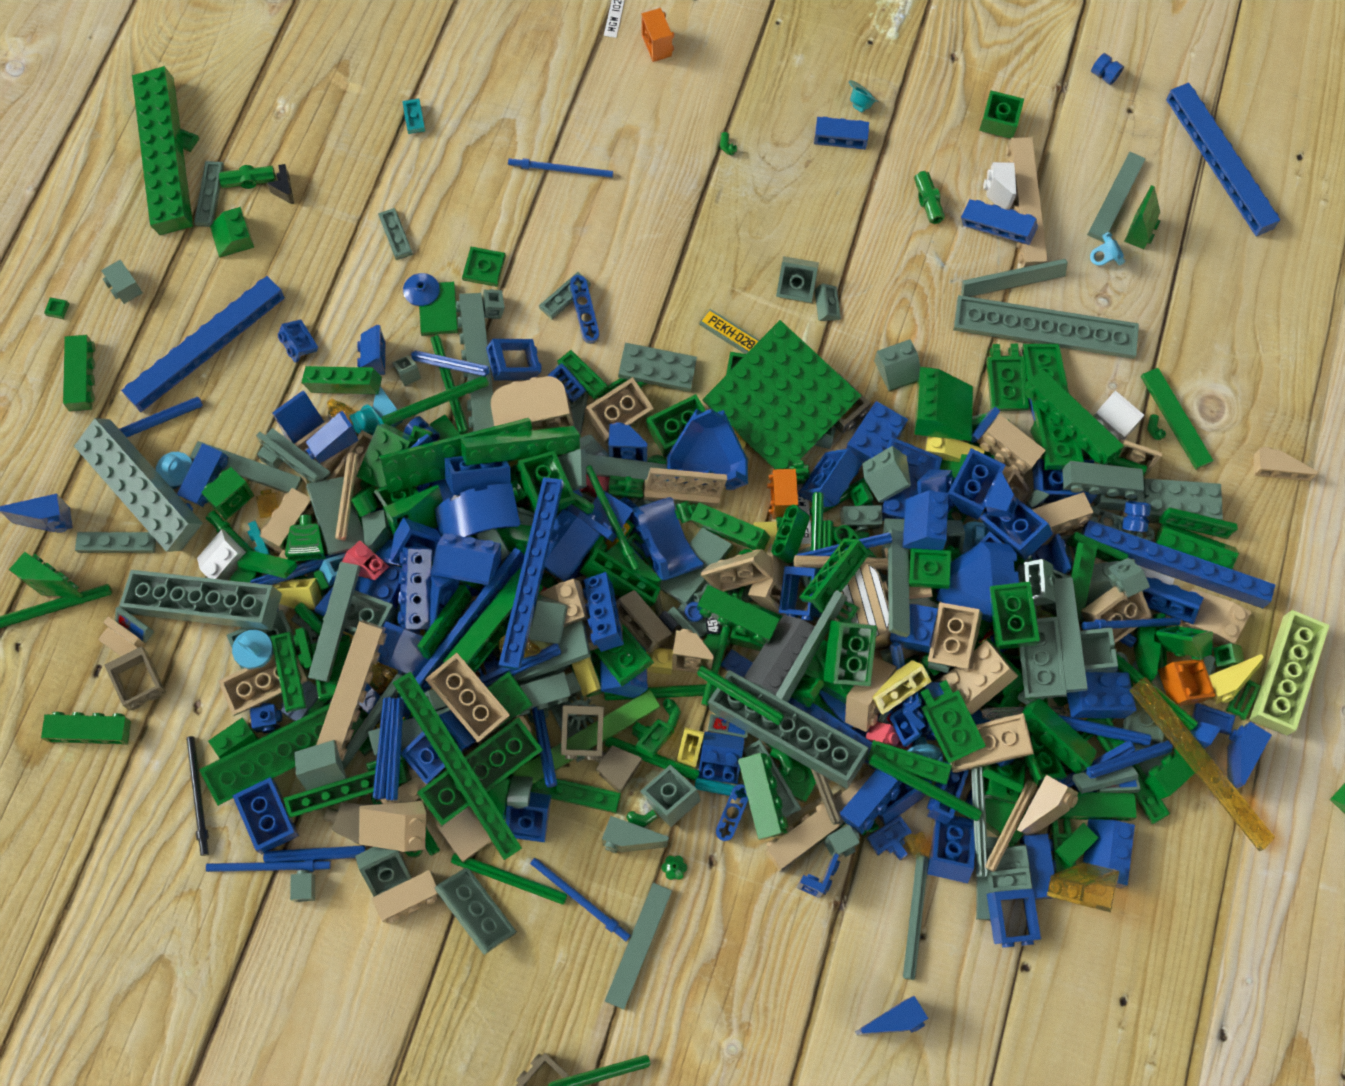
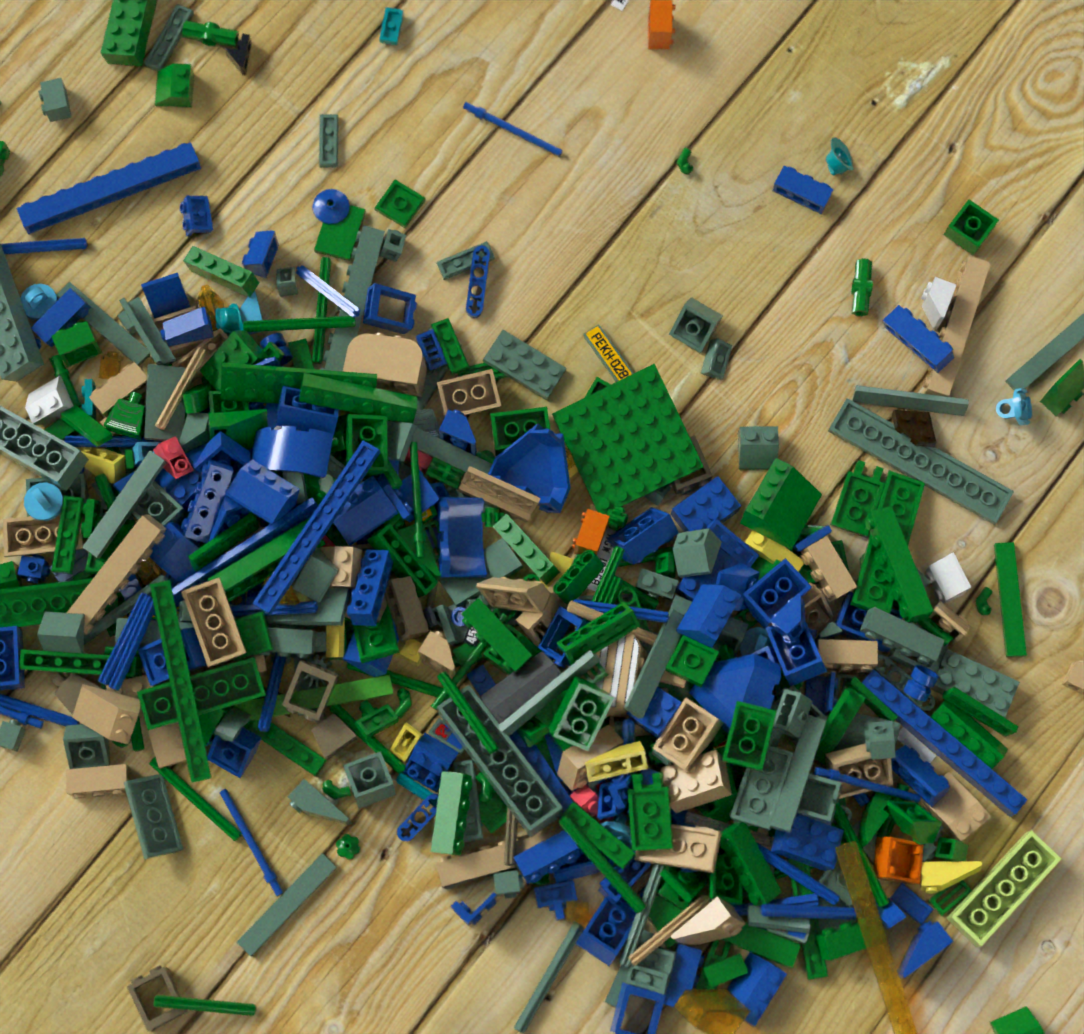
camera: 20 degrees right, 5 degrees up
(1030, 297) = (916, 426): none -> dark brown plate

